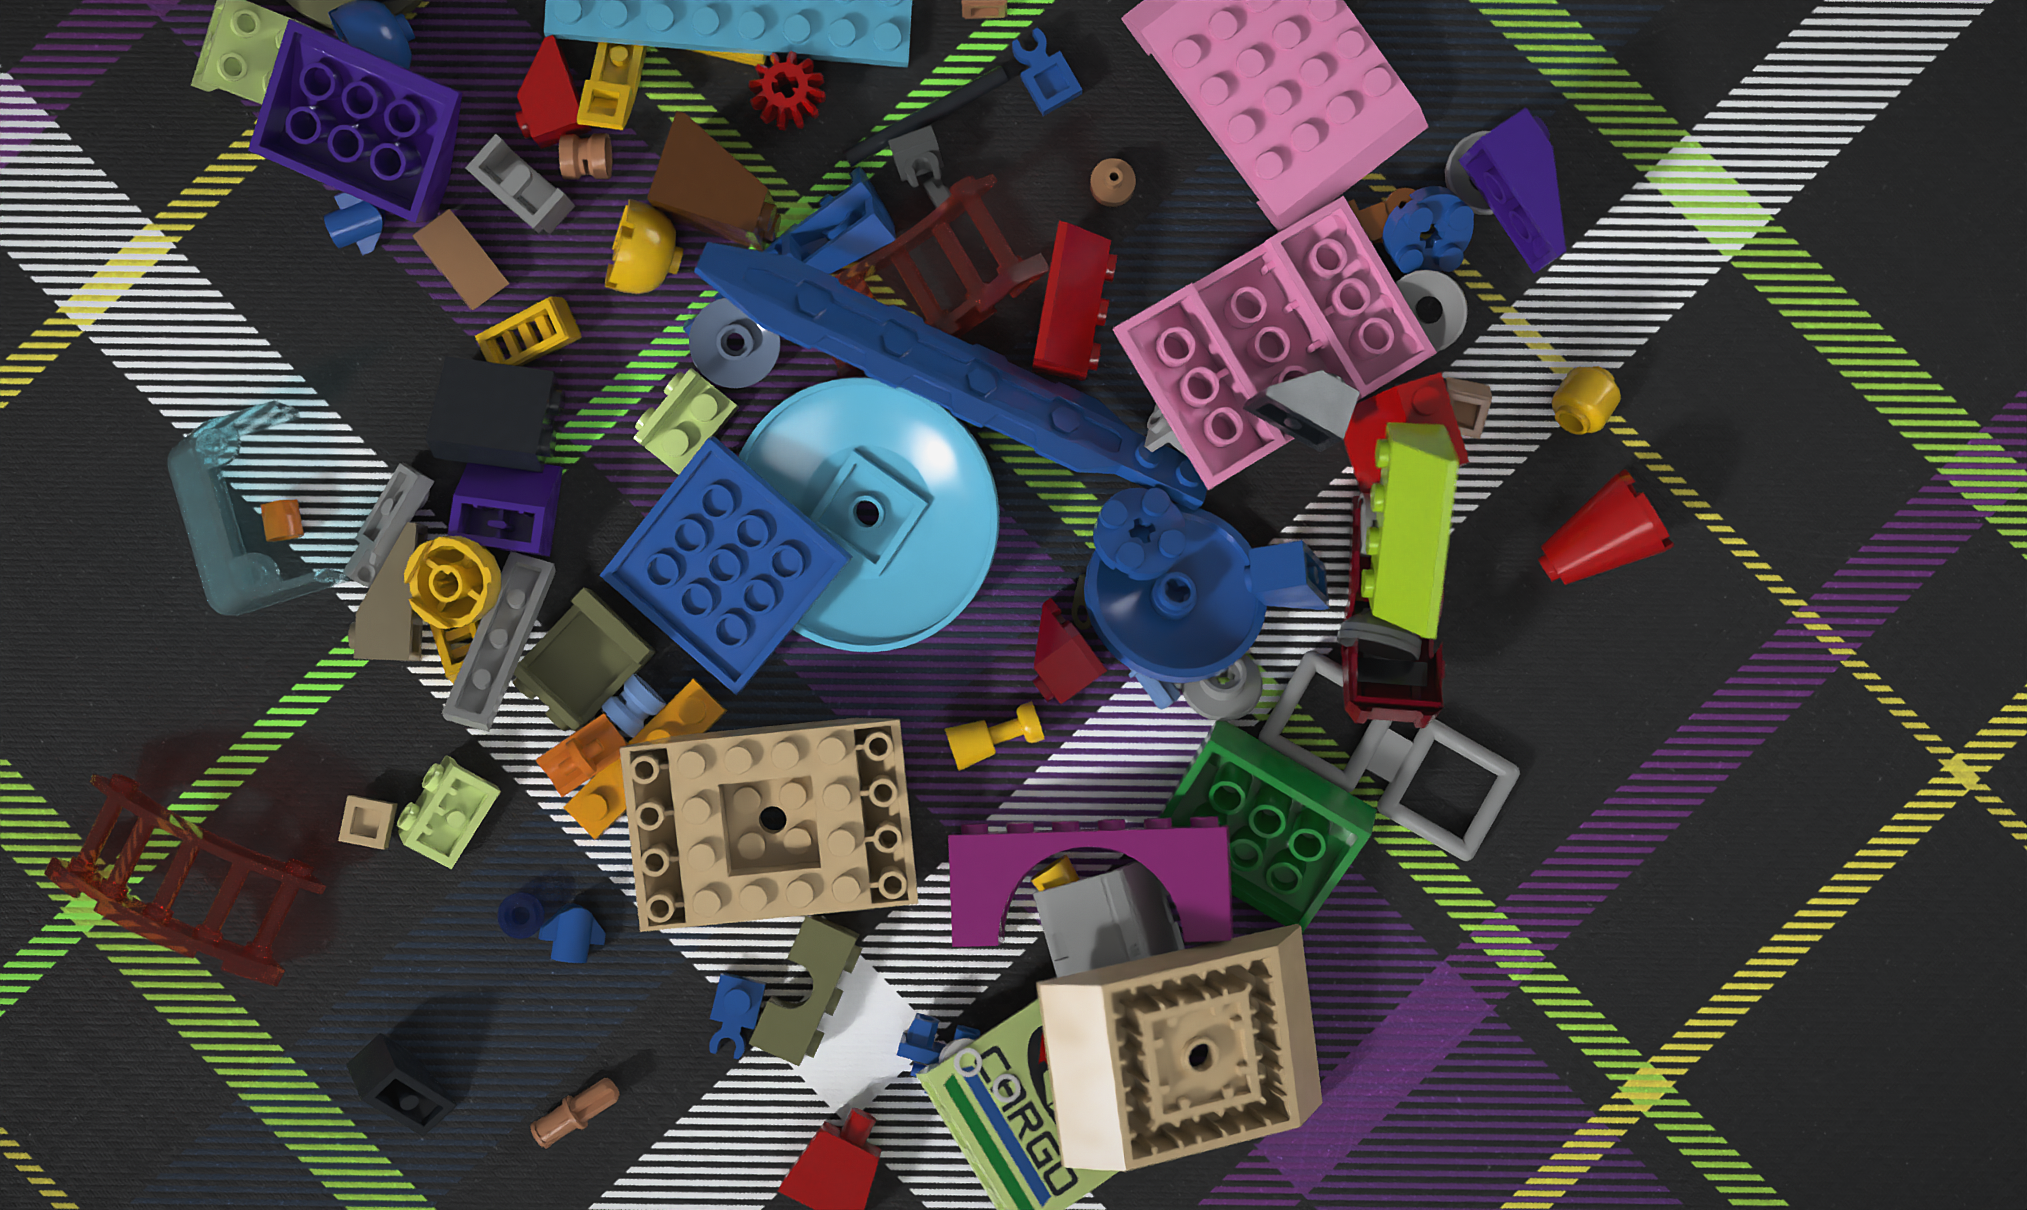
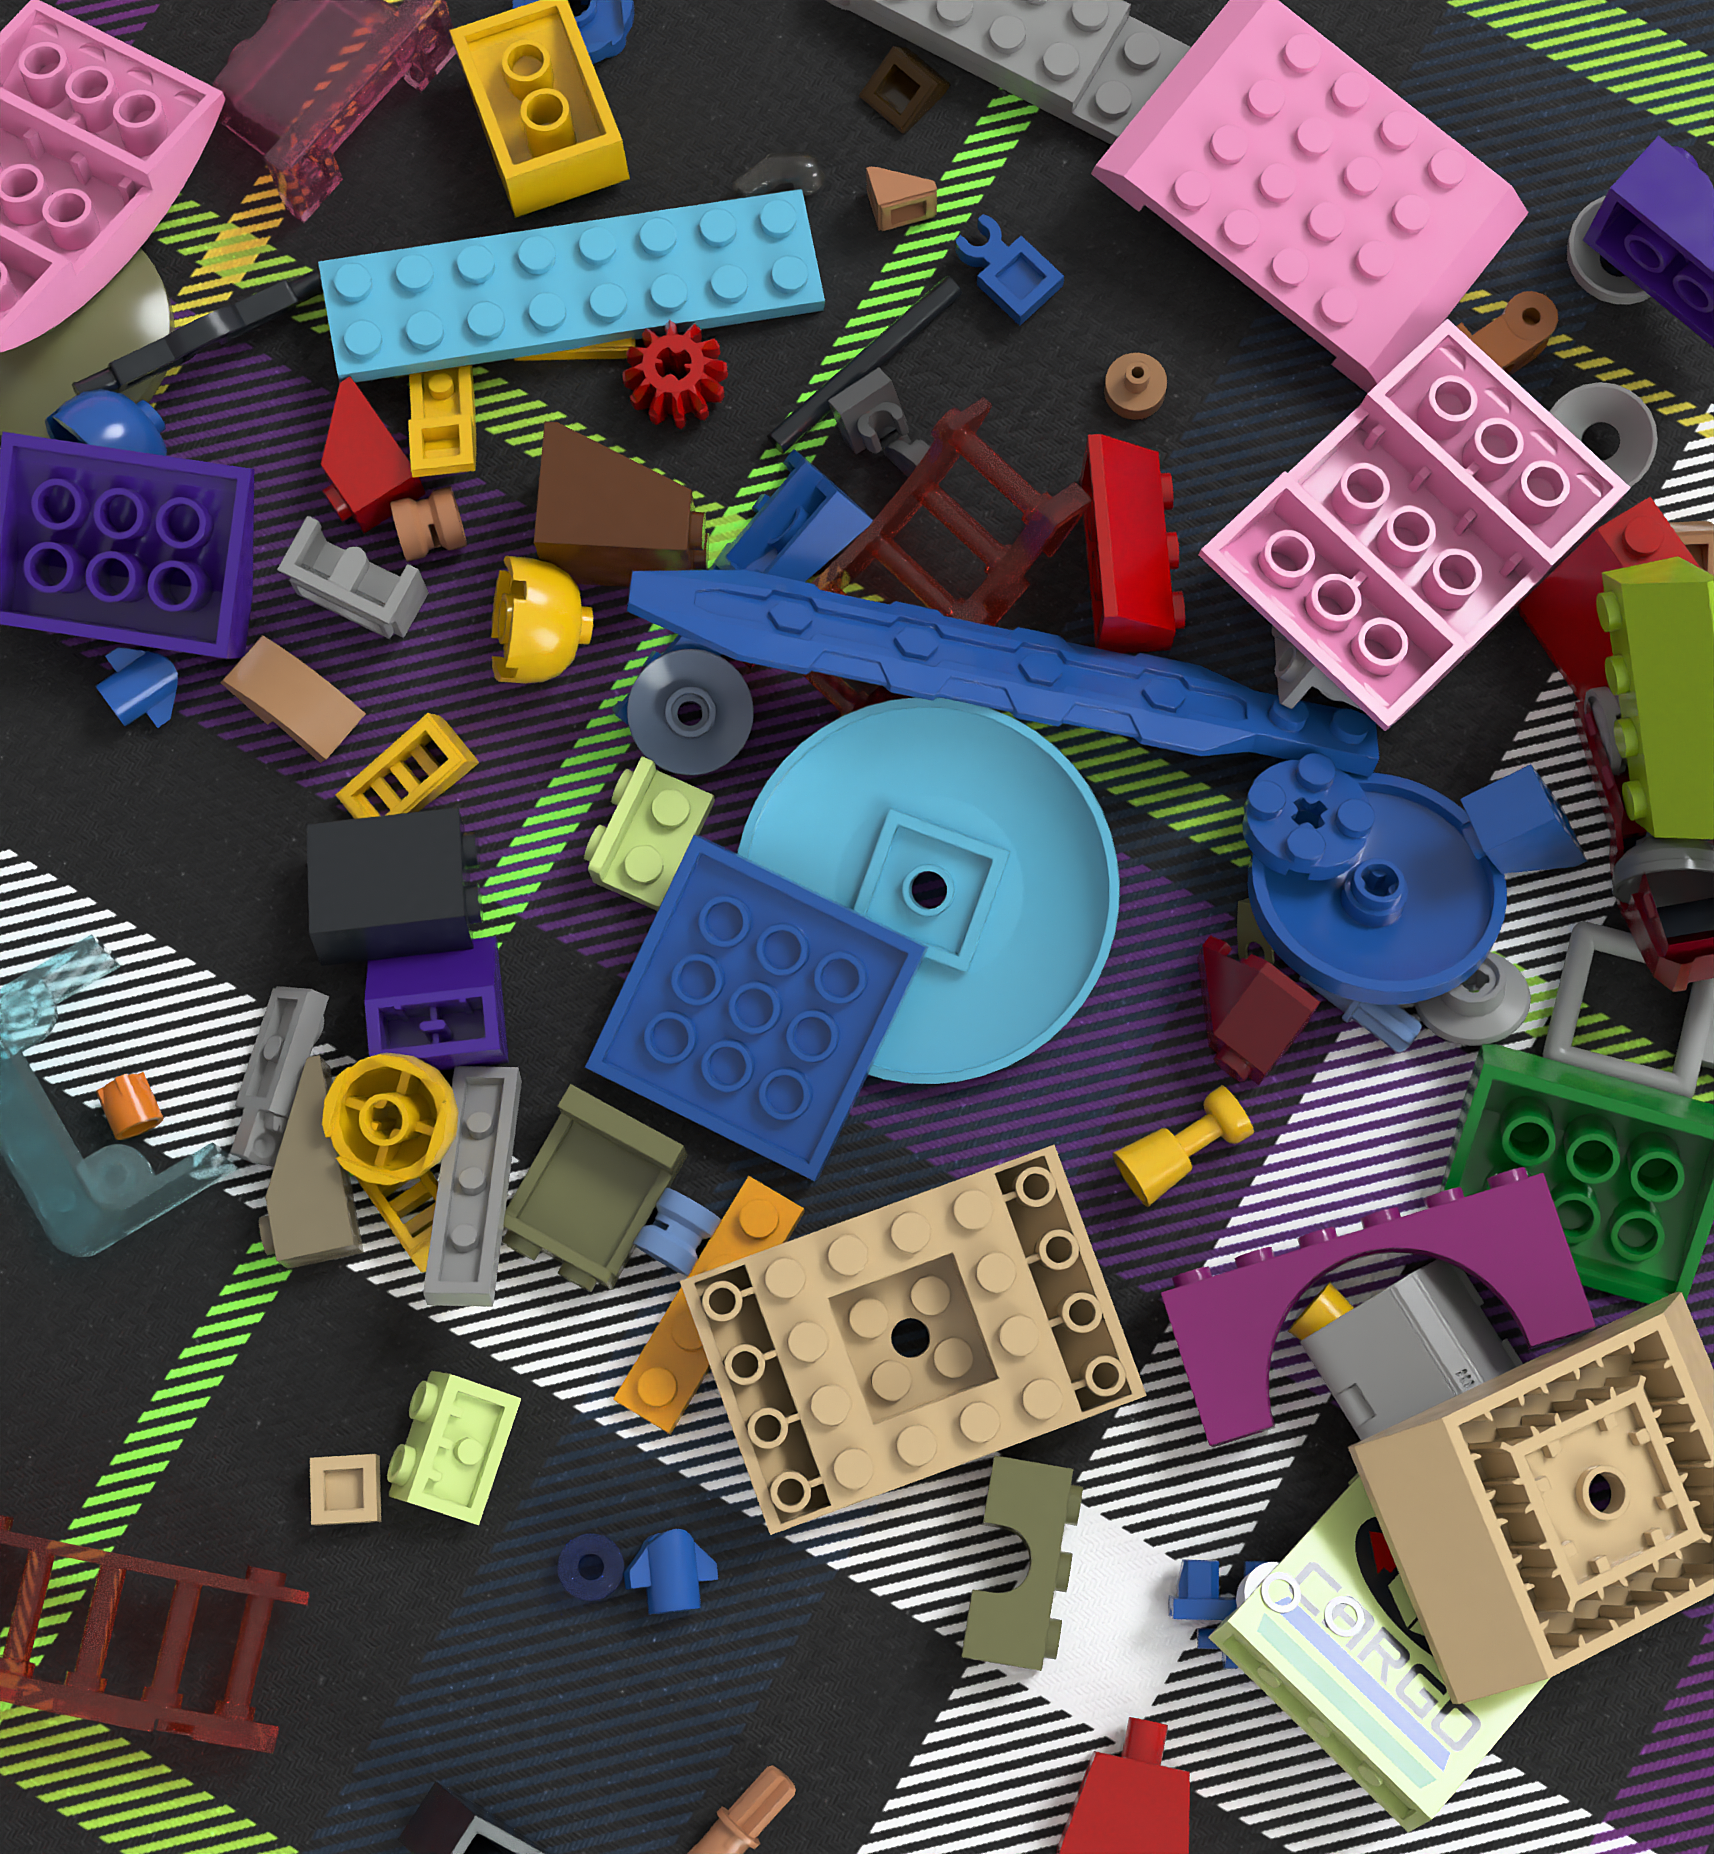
camera: 10 degrees left, 10 degrees down
(582, 754) = (625, 1314): orange hips -> none
(737, 1006) = (927, 1615): blue plate -> none
(1308, 408) = (1485, 591): slope -> none
(1444, 247) = (1601, 341): blue plate -> none

